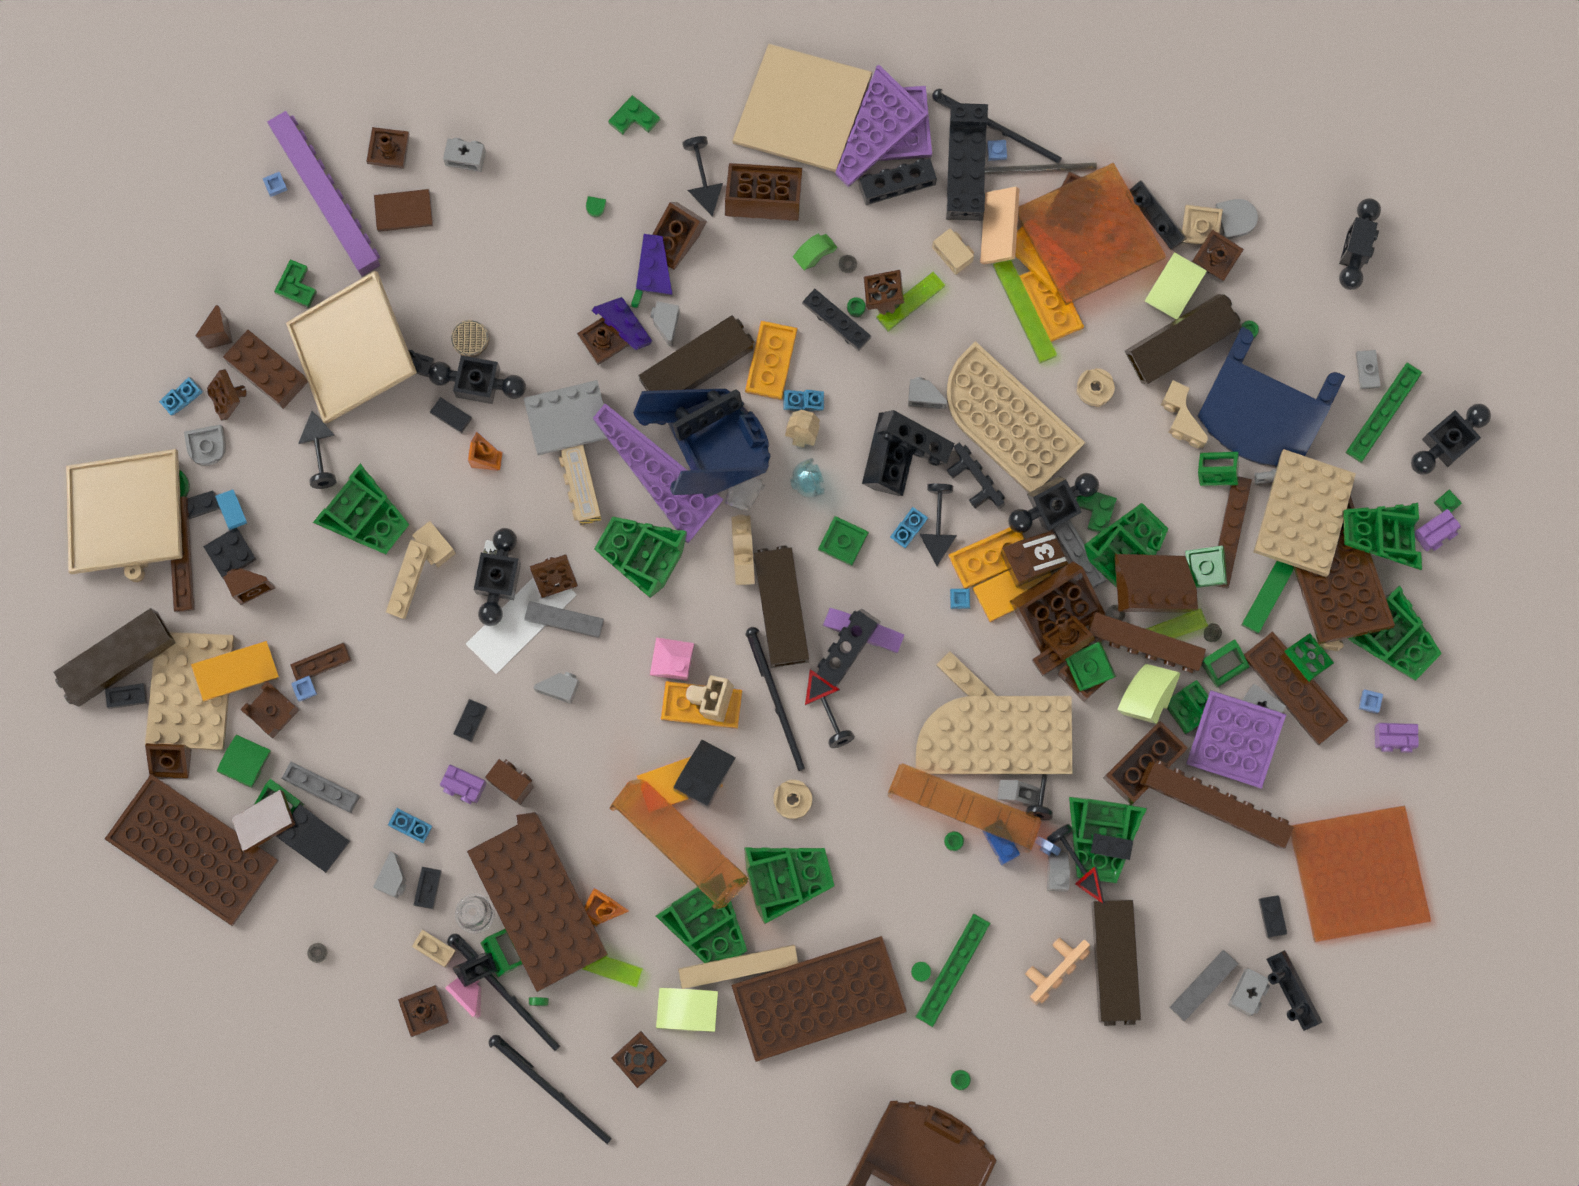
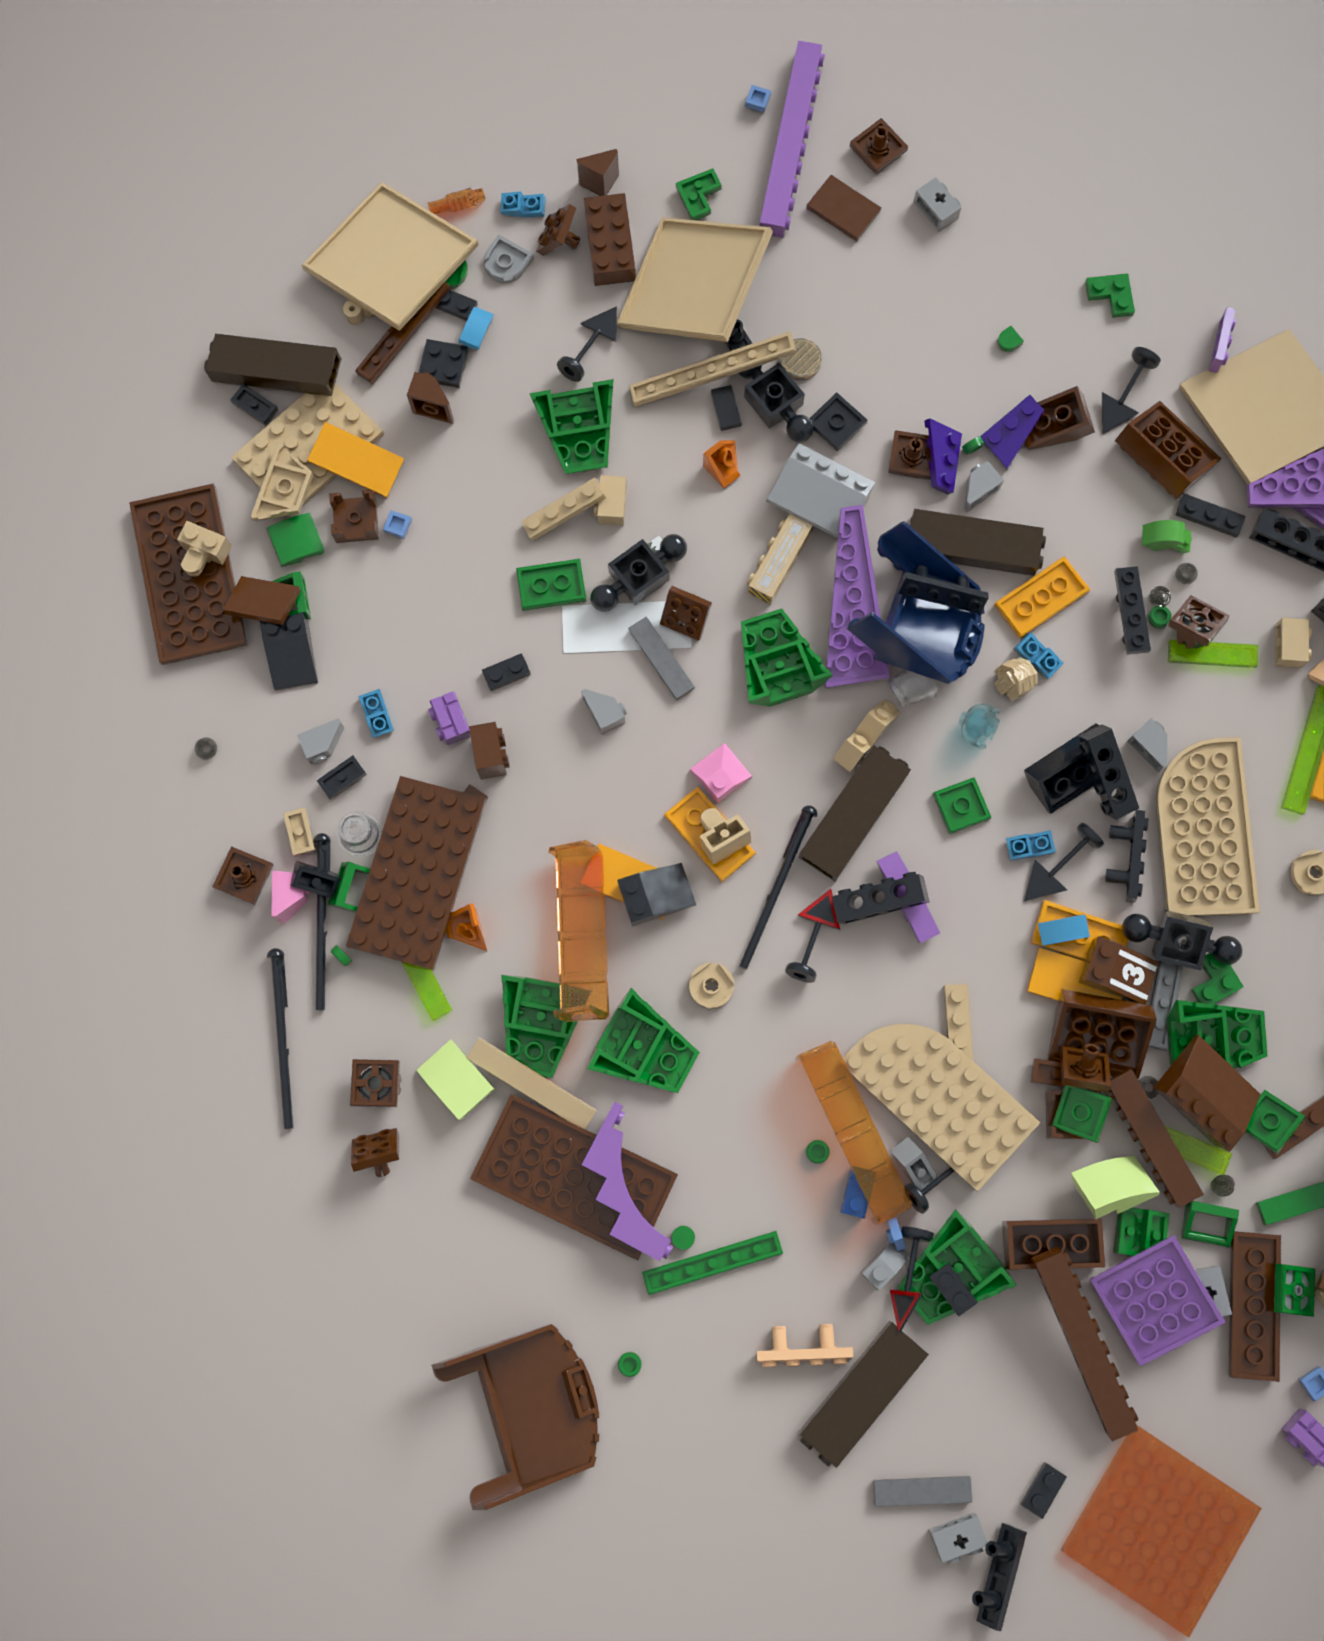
camera: 45 degrees right, 0 degrees up
(133, 433) = (457, 201): none -> clear orange hinge
(168, 760) = (237, 485): reddish brown slope -> none
(187, 823) = (201, 547): none -> tan brick
(203, 733) = (283, 487): none -> tan wing
(320, 787) = (335, 617): flat silver tile -> none
(321, 662) = (432, 515): reddish brown tile -> none
(420, 398) = (713, 369): none -> tan tile
(445, 636) = (551, 584): none -> green tile
(533, 360) = (837, 421): none -> black plate
(680, 1101) = (375, 1151): none -> reddish brown plate
(733, 88) = (1223, 340): none -> plate
(828, 212) = (1210, 515): none -> black plate
(830, 968) = (606, 1160): none -> medium lavender arch
(842, 290) = (1159, 596): none -> clear smoke plate
(959, 598) = (1019, 947): dark azure tile -> none
(977, 562) = (1064, 930): none -> dark azure slope

